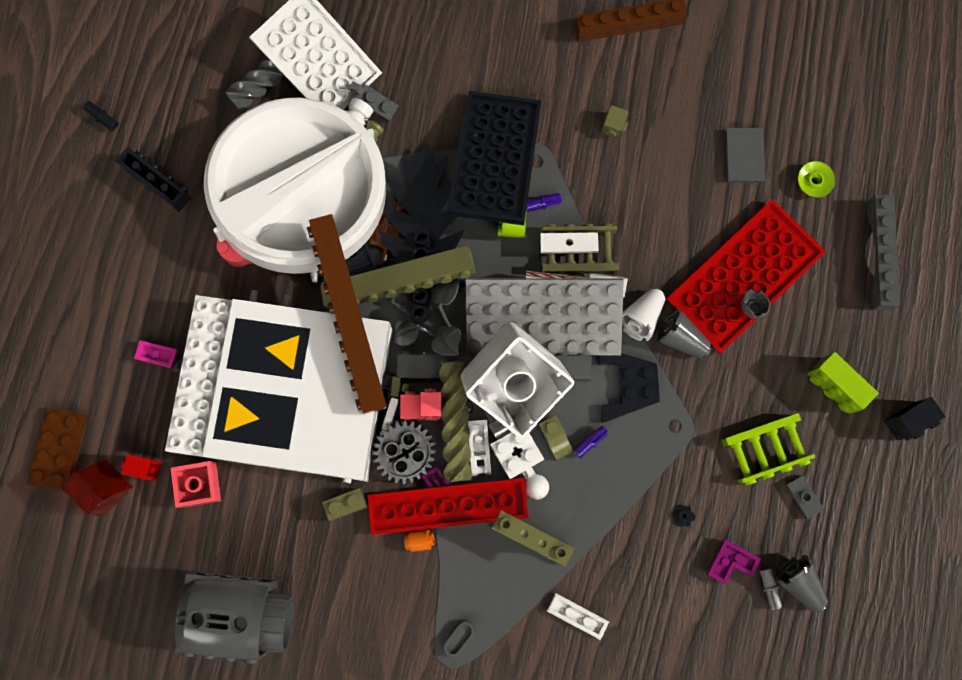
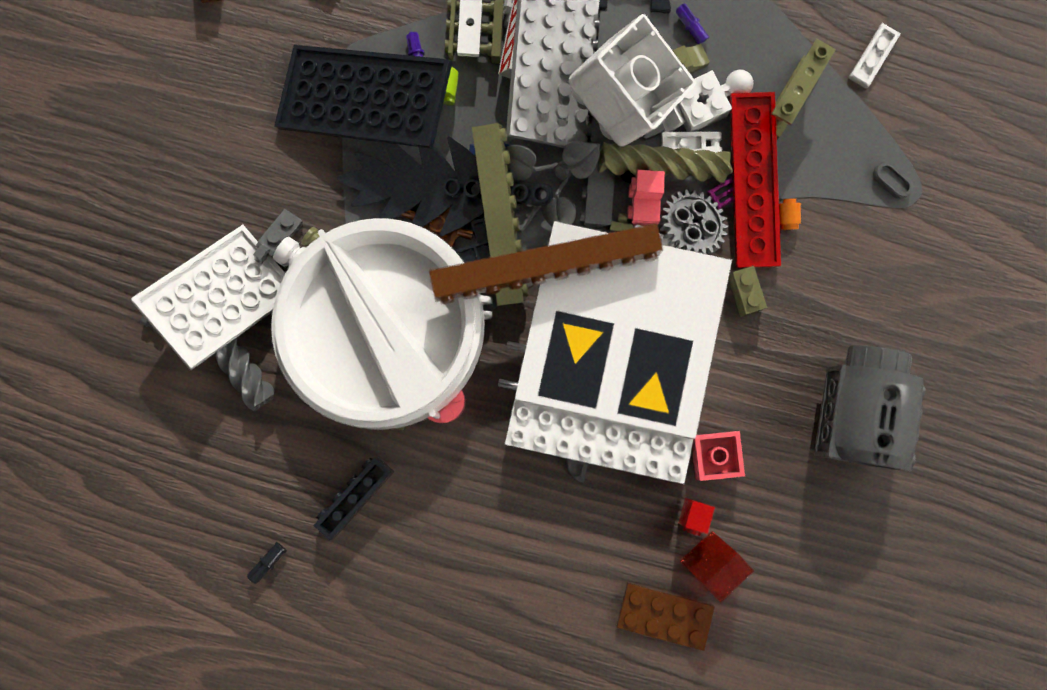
camera: 85 degrees left, 5 degrees up
(156, 354) = (563, 500): dark pink plate -> none

